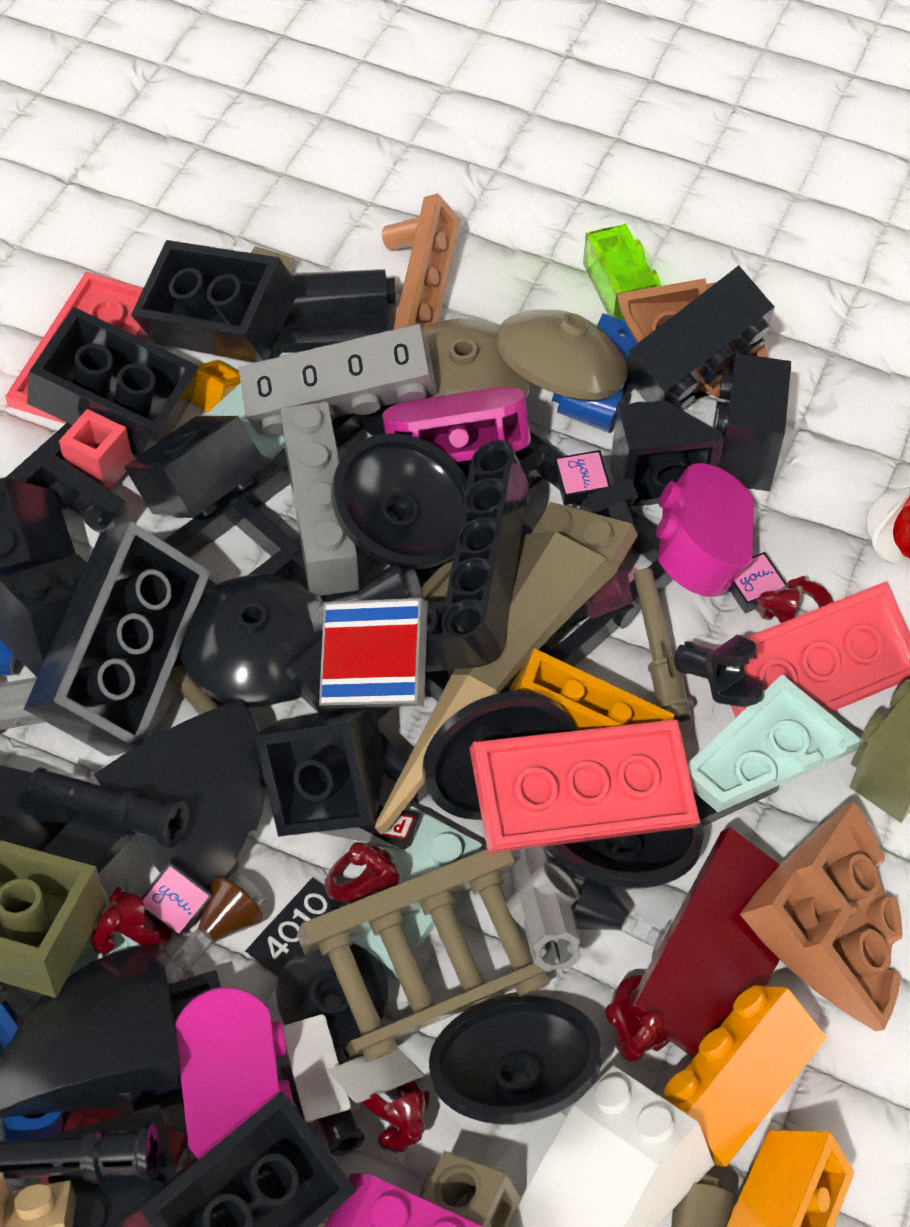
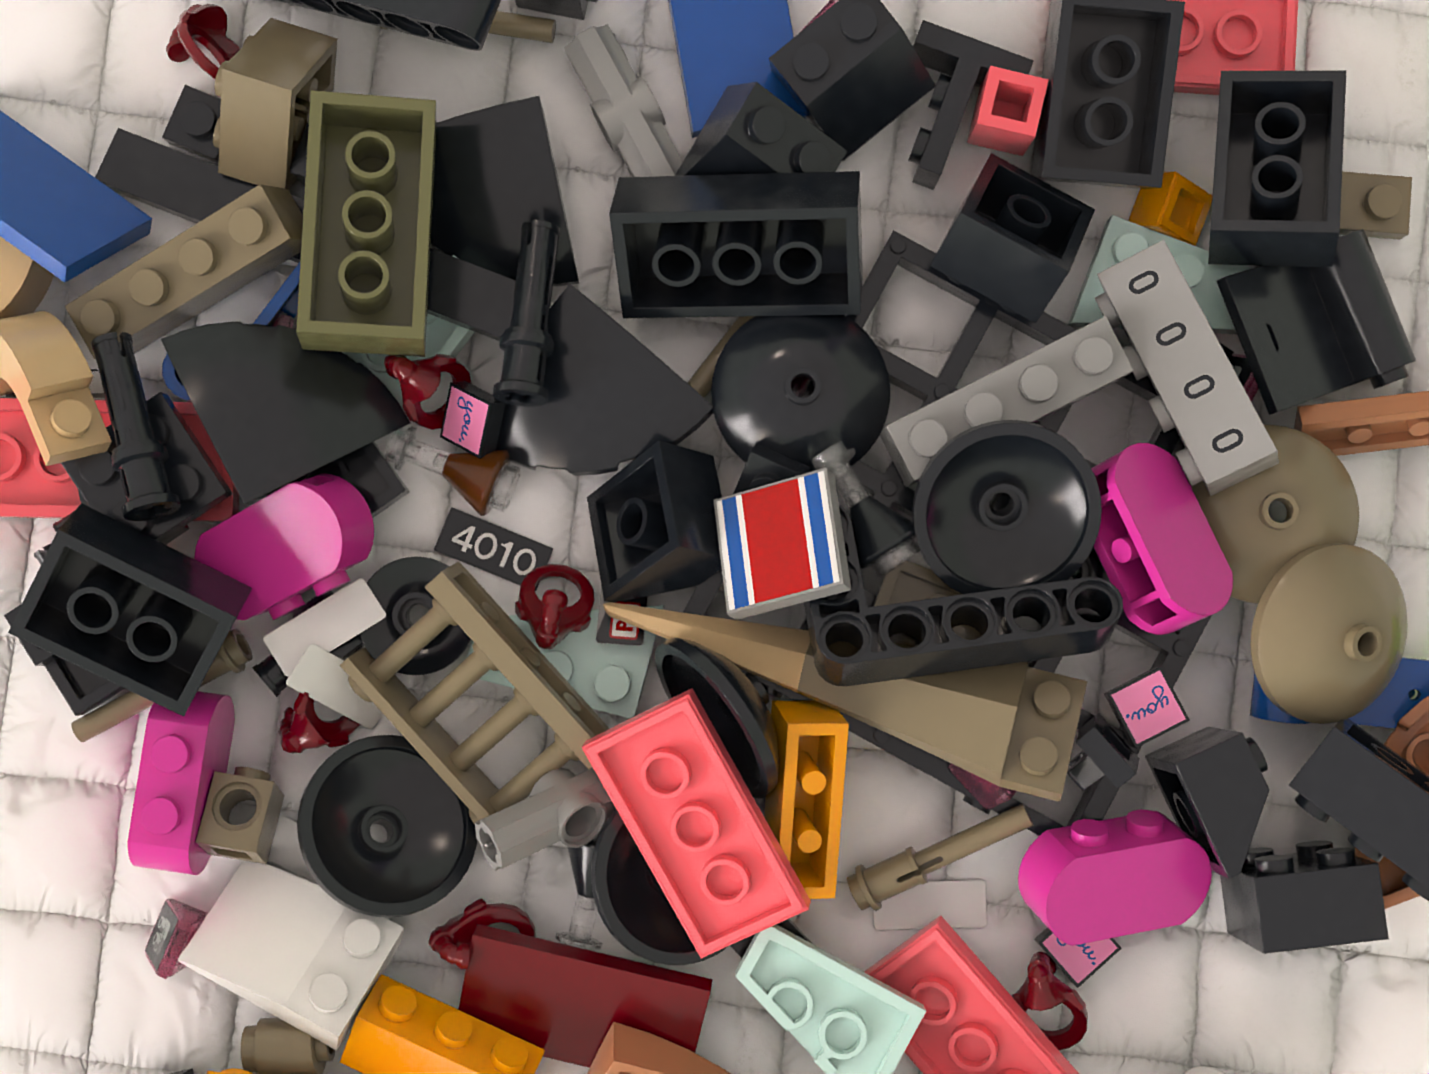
camera: 75 degrees right, 30 degrees up
(723, 670) = (905, 949): black piece -> none

